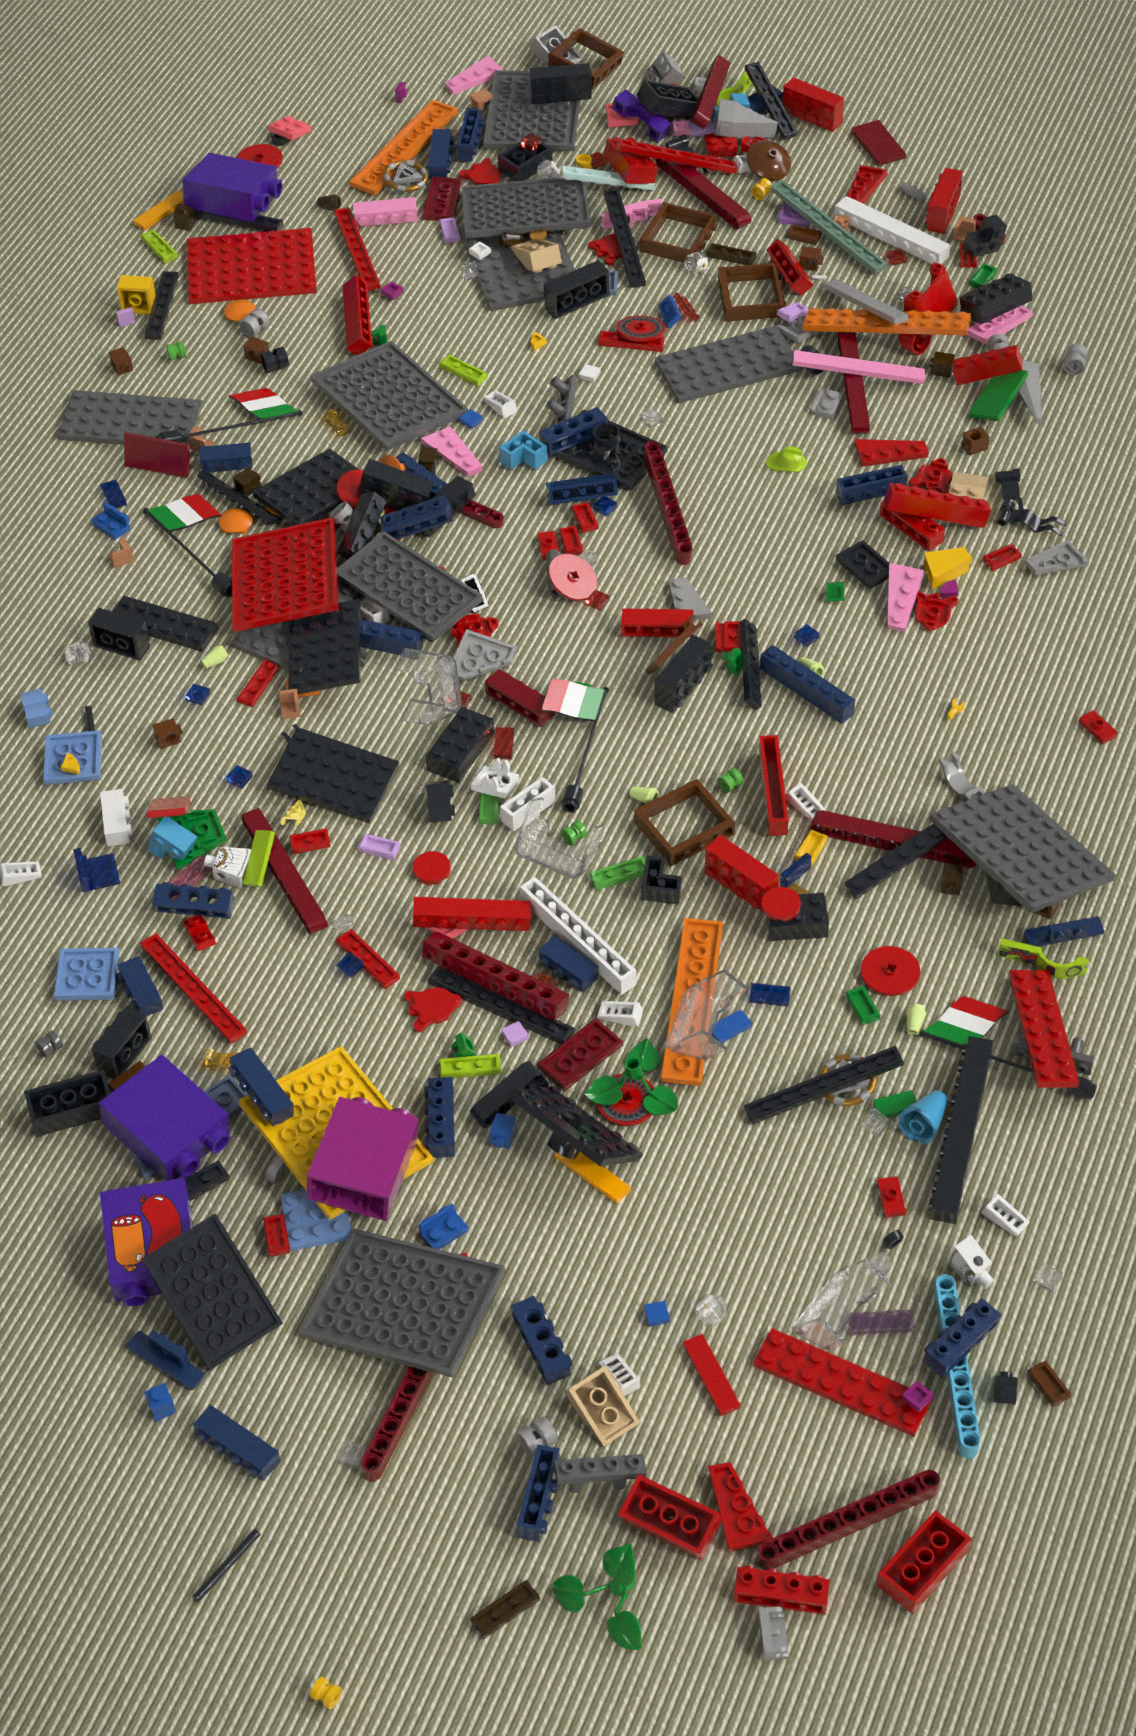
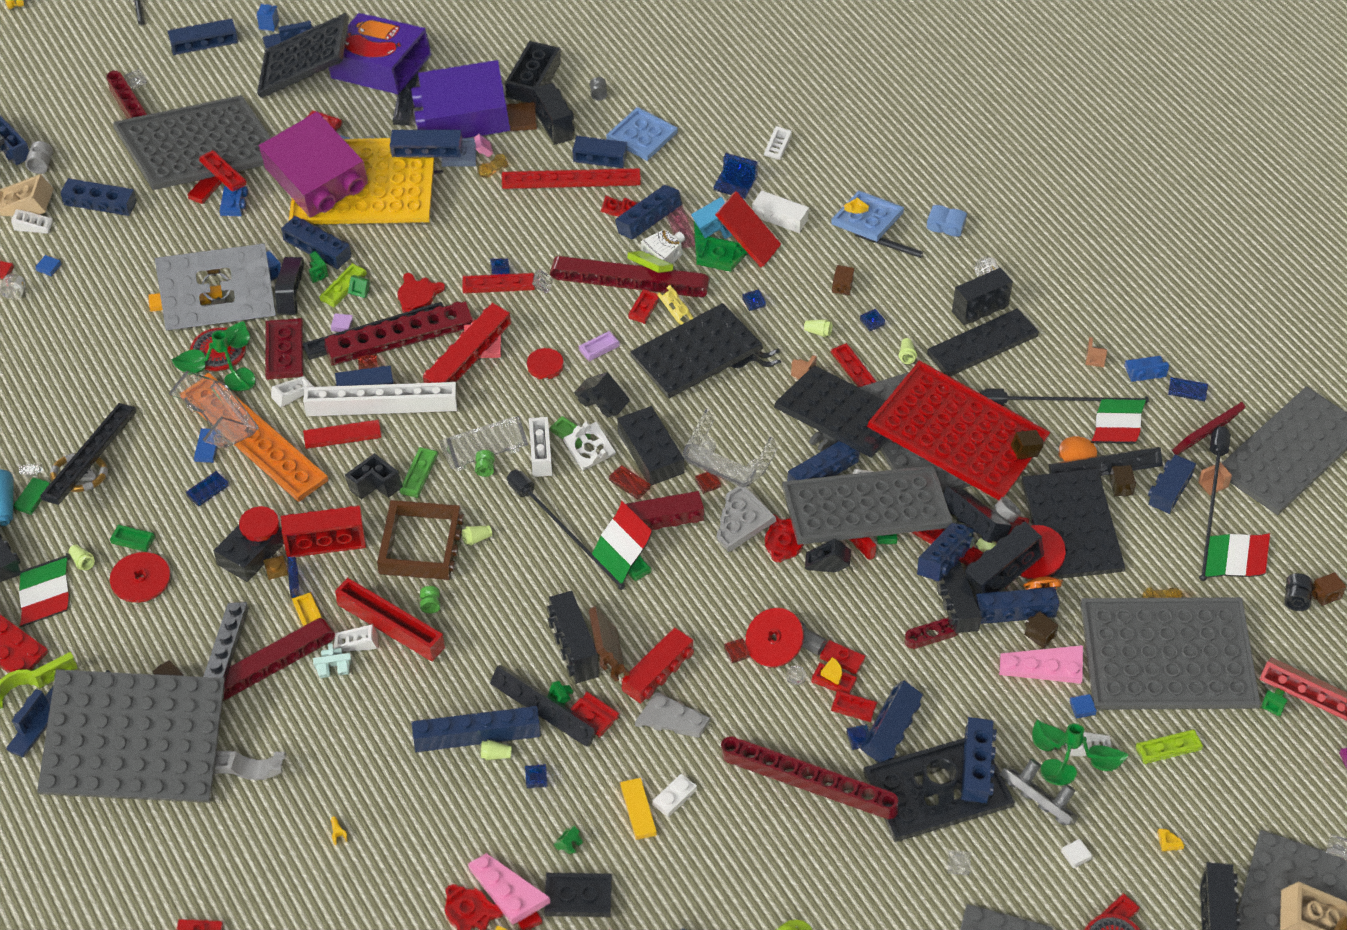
camera: 125 degrees right, 0 degrees up
(206, 1079) = (483, 145): none -> bright pink plate
(235, 720) = (819, 327): none -> yellowish green cone
(267, 529) = (1027, 444): none -> dark brown brick
(427, 1239) = (222, 171): none -> red tile
(470, 1090) = (318, 268): none -> green bracket
(508, 382) = (1060, 773): none -> green plant
(523, 449) = (989, 705): dark azure brick -> none
(569, 537) = (832, 671): none -> yellow tile
(631, 947) = (342, 434): none -> red tile
(744, 565) = (674, 795): none -> white plate
(773, 576) = (638, 809): none -> yellow tile
(838, 798) = (331, 659): none -> light aqua hips

